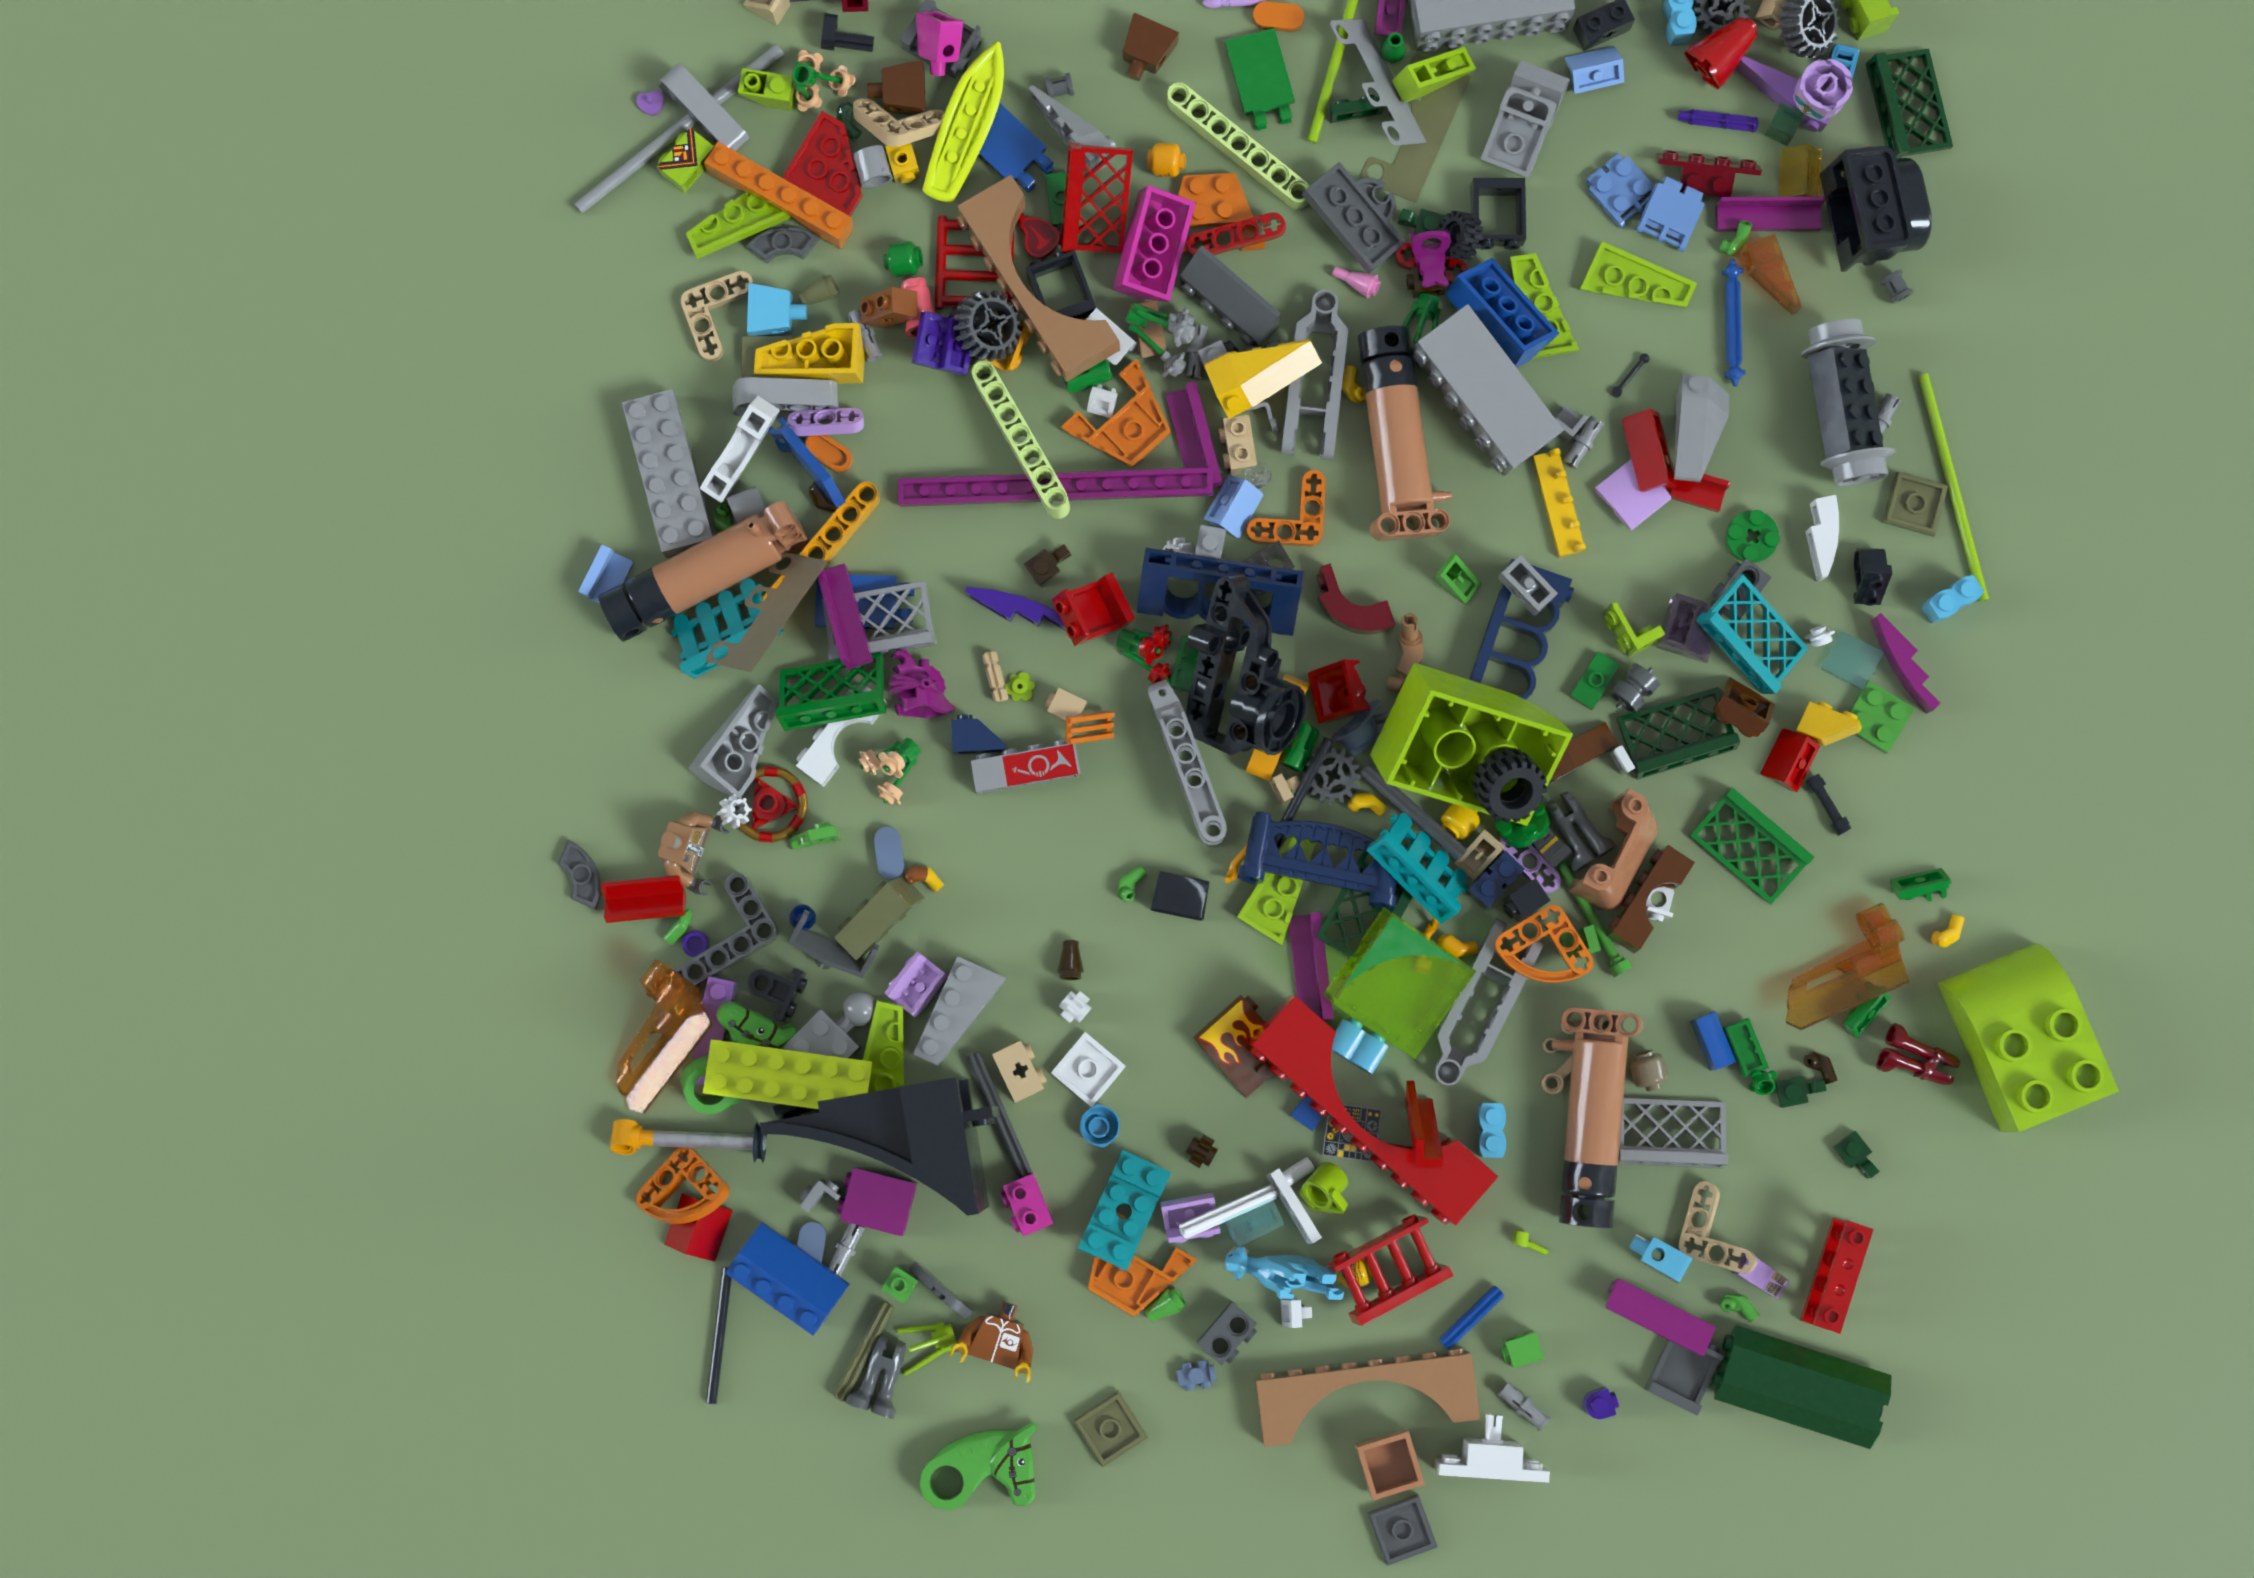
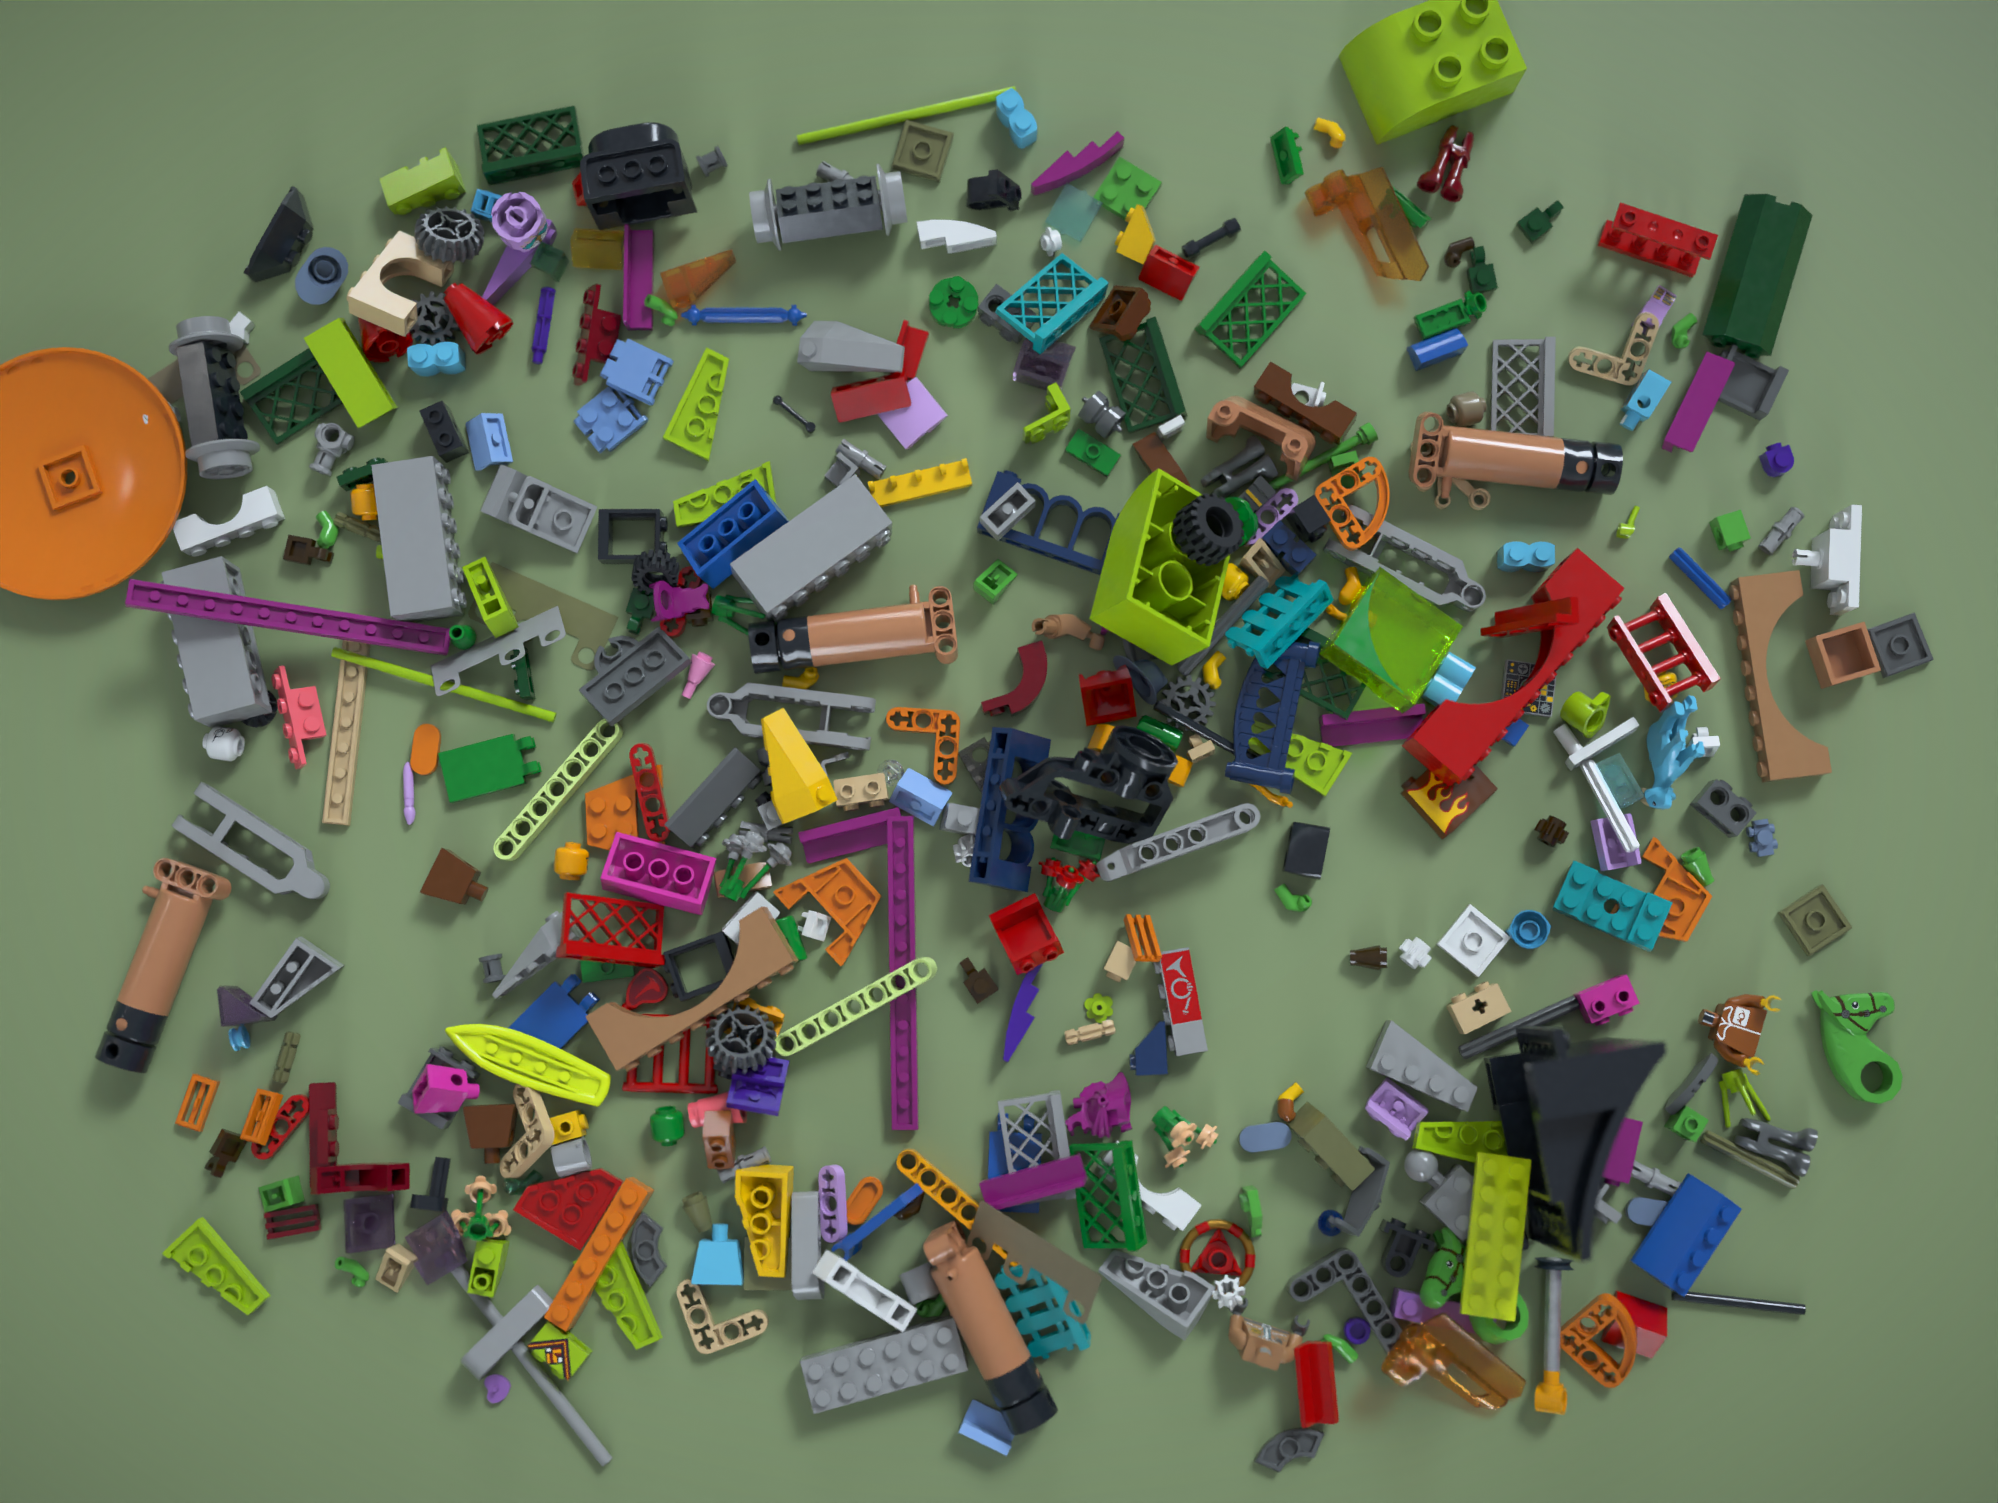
camera: 90 degrees left, 0 degrees up
(786, 40) = (437, 1247): none -> clear purple slope

